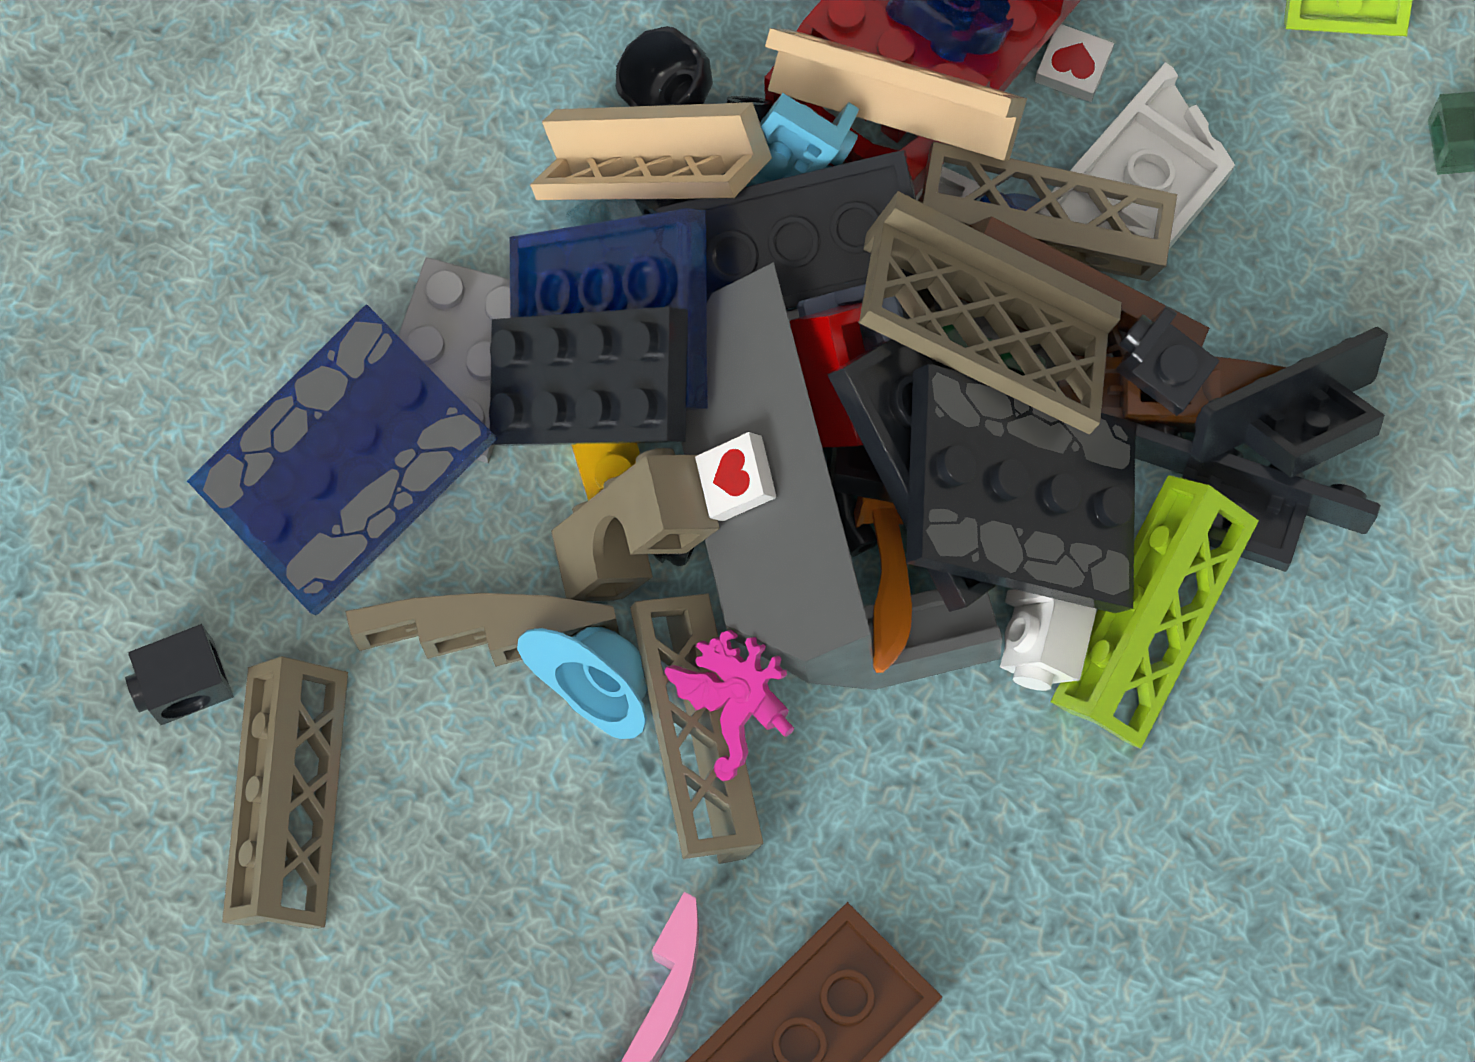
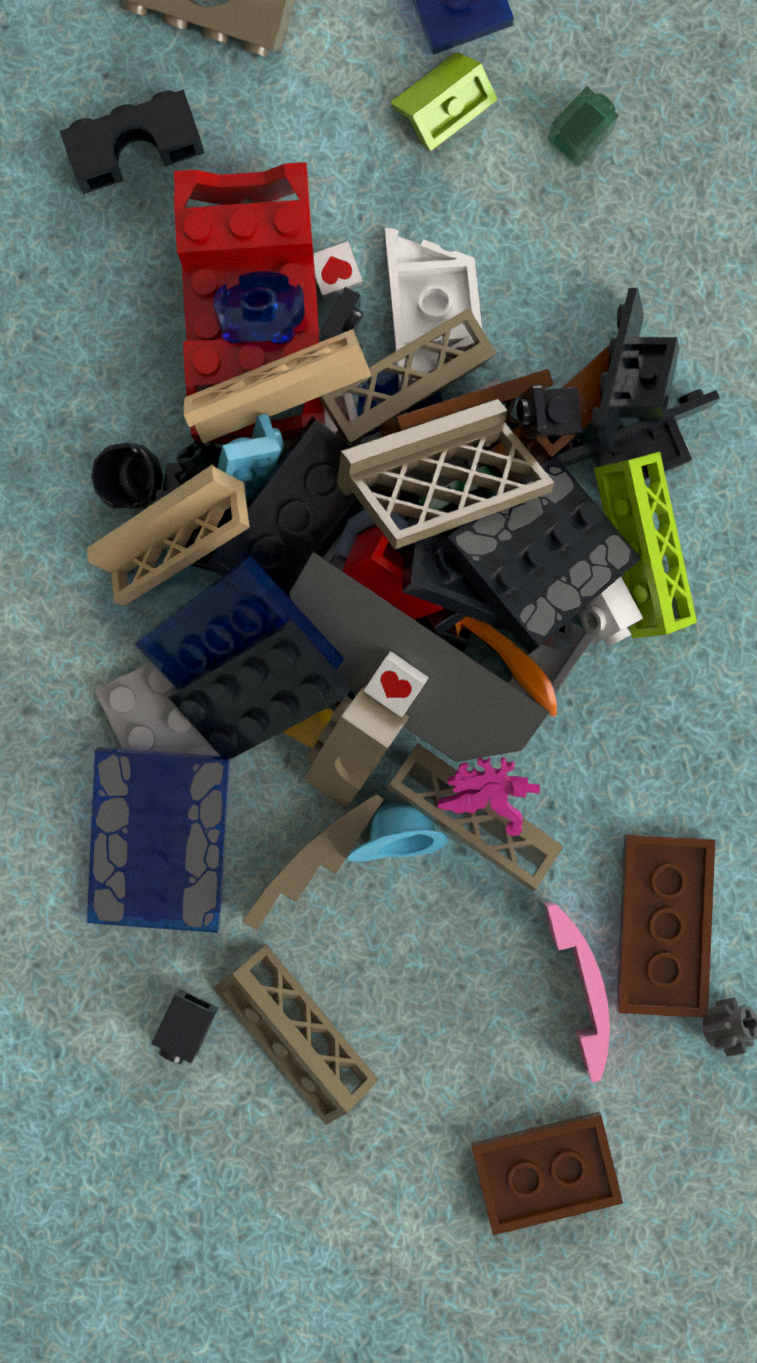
camera: 45 degrees left, 15 degrees up
(1044, 113) = (343, 316): none -> black bracket

